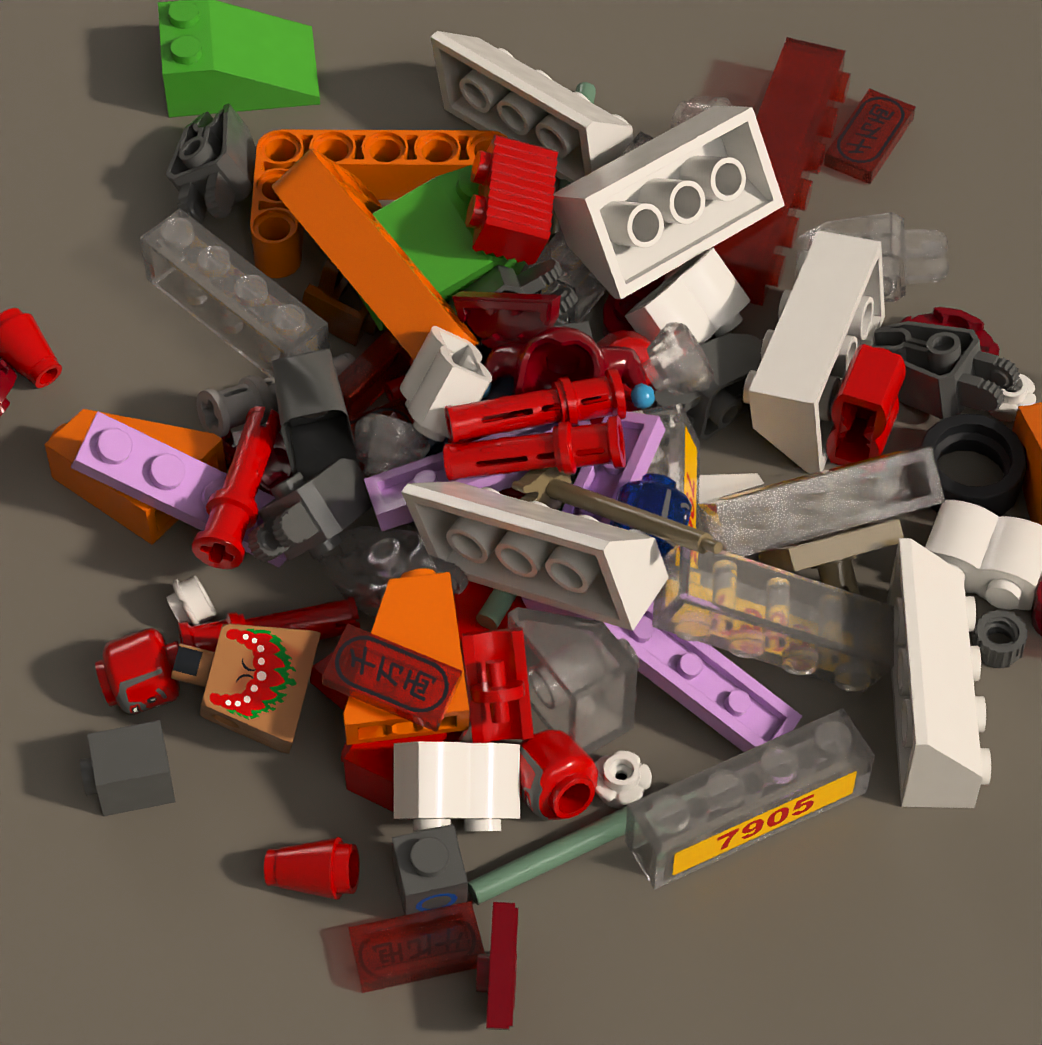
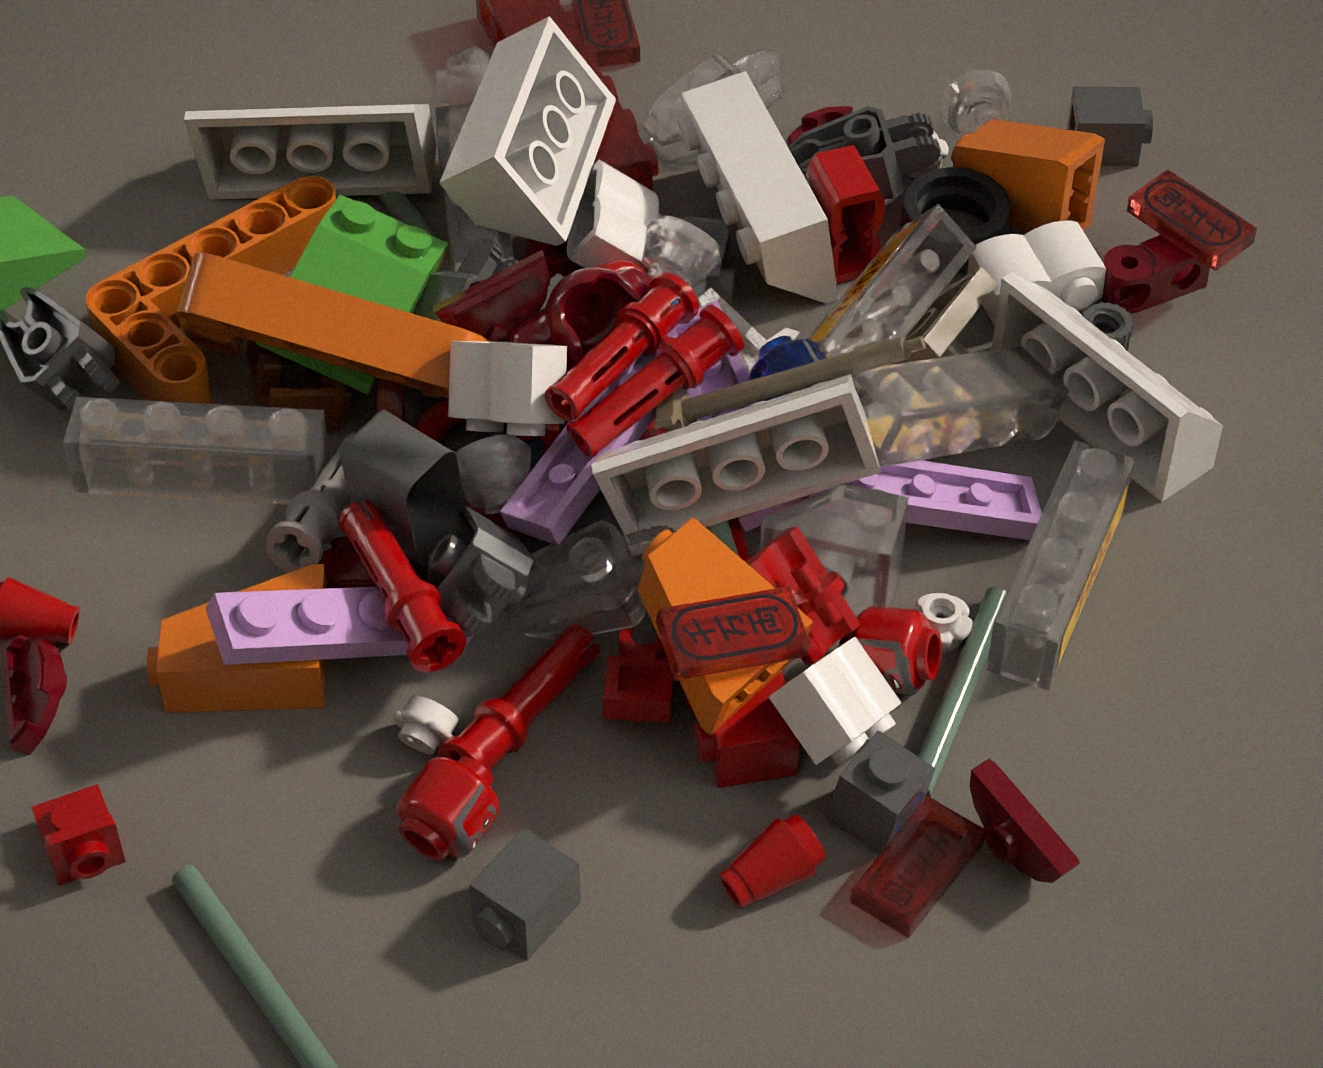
camera: 40 degrees left, 5 degrees down
(252, 680) = (572, 741): medium nougat torso -> none
(513, 199) = (415, 201): red brick -> none

